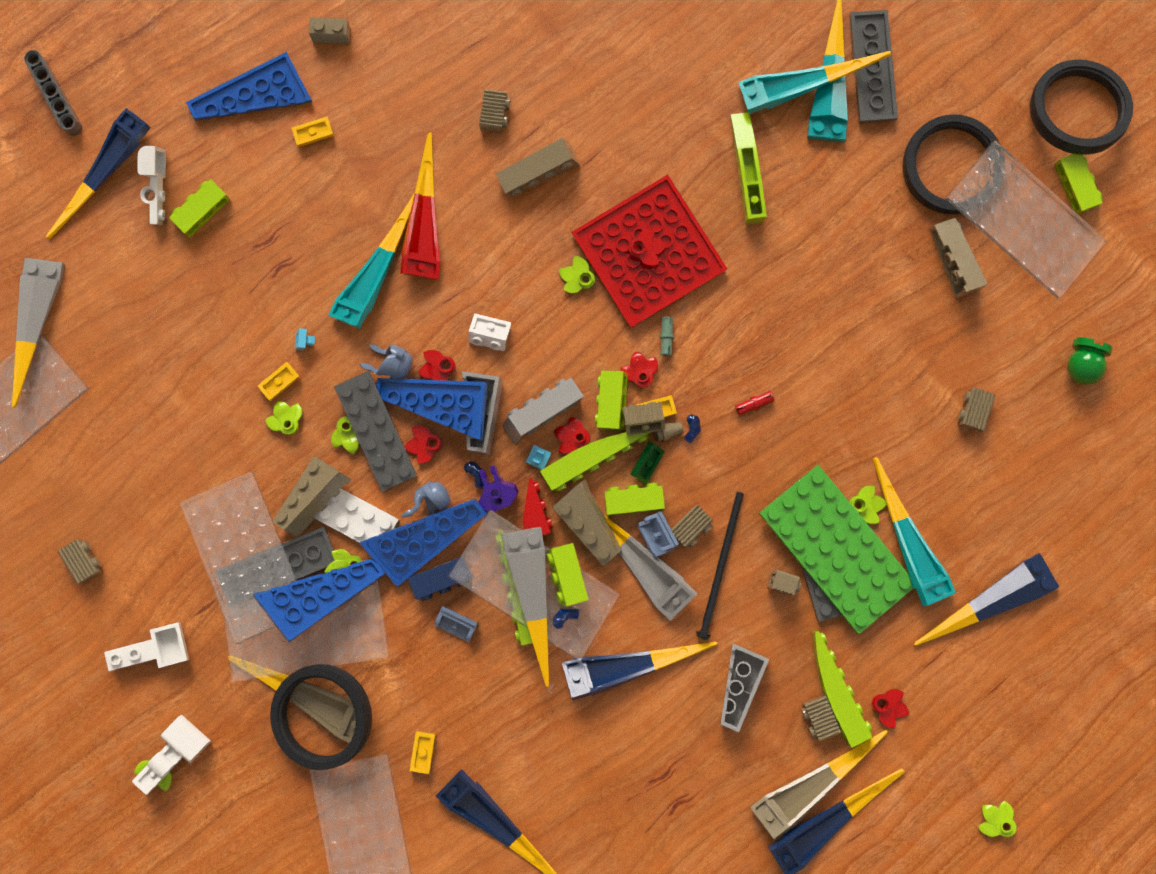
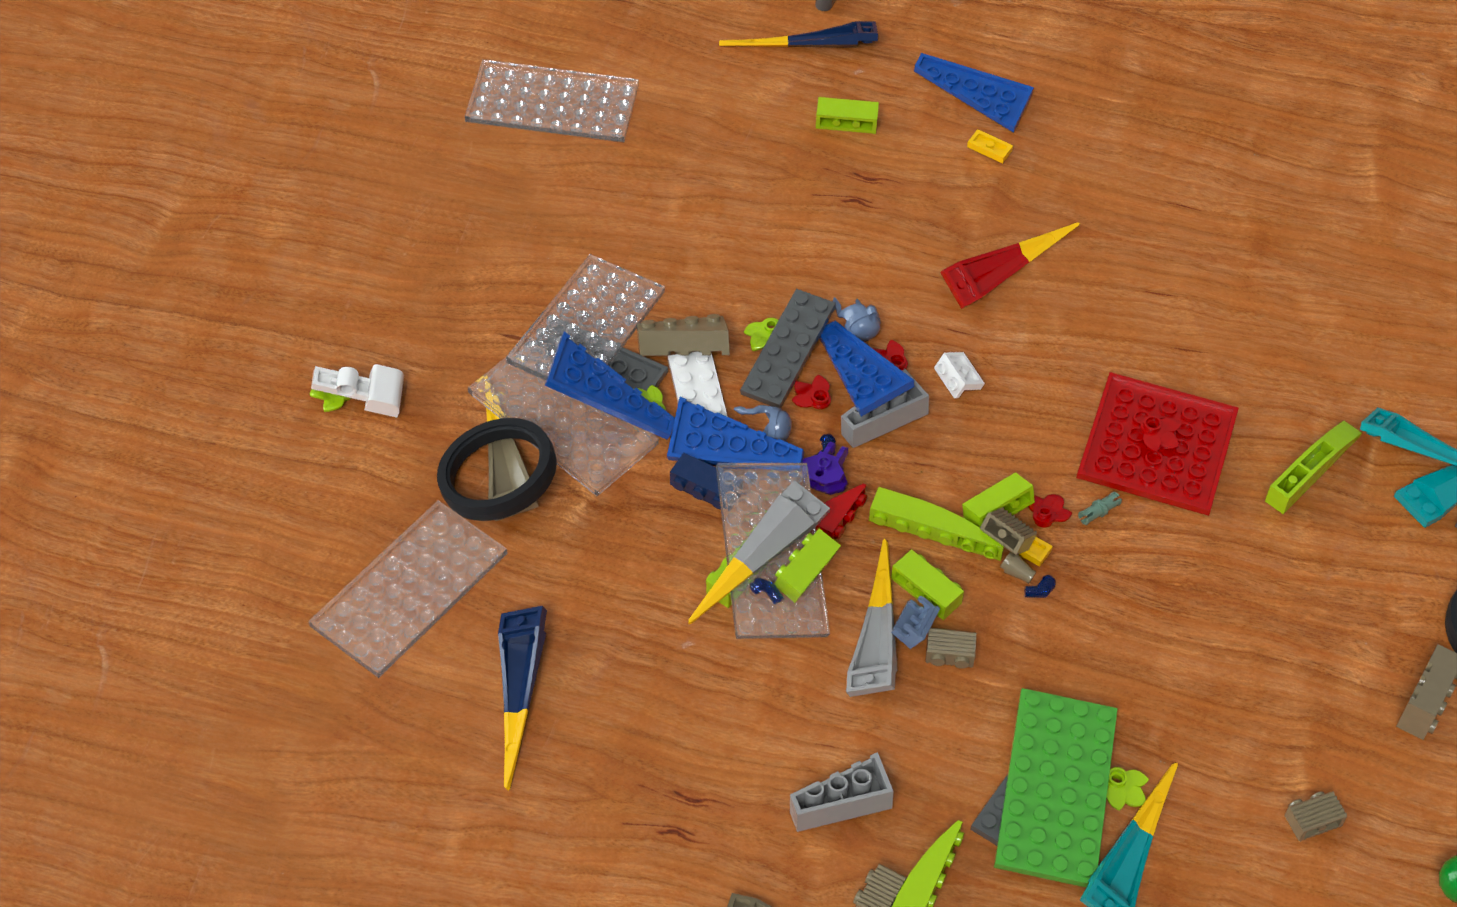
camera: 50 degrees right, 30 degrees down
(37, 293) = (666, 61): light grey plate -> none
(80, 561) = (473, 224): dark tan brick -> none
(153, 165) = (850, 60): white plate -> none
(166, 646) = (452, 326): white plate -> none
(278, 381) = (760, 257): yellow plate -> none
(282, 416) = (733, 283): lime plate -> none
(302, 340) = (813, 249): medium azure tile -> none
(329, 30) = (1082, 102): dark tan brick -> none
(361, 293) = (890, 263): teal plate -> none
(422, 752) = (533, 577): yellow plate -> none
(456, 623) = (676, 523): sand blue hinge -> none
(493, 111) = (1146, 251): dark tan brick -> none
(538, 168) = (1138, 311): dark tan wedge -> none
(538, 457) = (889, 482): medium azure tile -> none
(542, 409) = (933, 454): light grey wedge -> none
(569, 436) = (934, 494): red plate -> none
(574, 274) = (1075, 405): lime plate -> none
(588, 522) = (870, 558): dark tan wedge -> none
(602, 673) = (741, 668): dark blue plate -> none
(647, 462) = (973, 570): dark green plate -> none
(703, 634) = (860, 730): black bar -> none
(754, 403) = (1116, 621): red pin -> none
(784, 582) = (977, 757): dark tan brick -> none

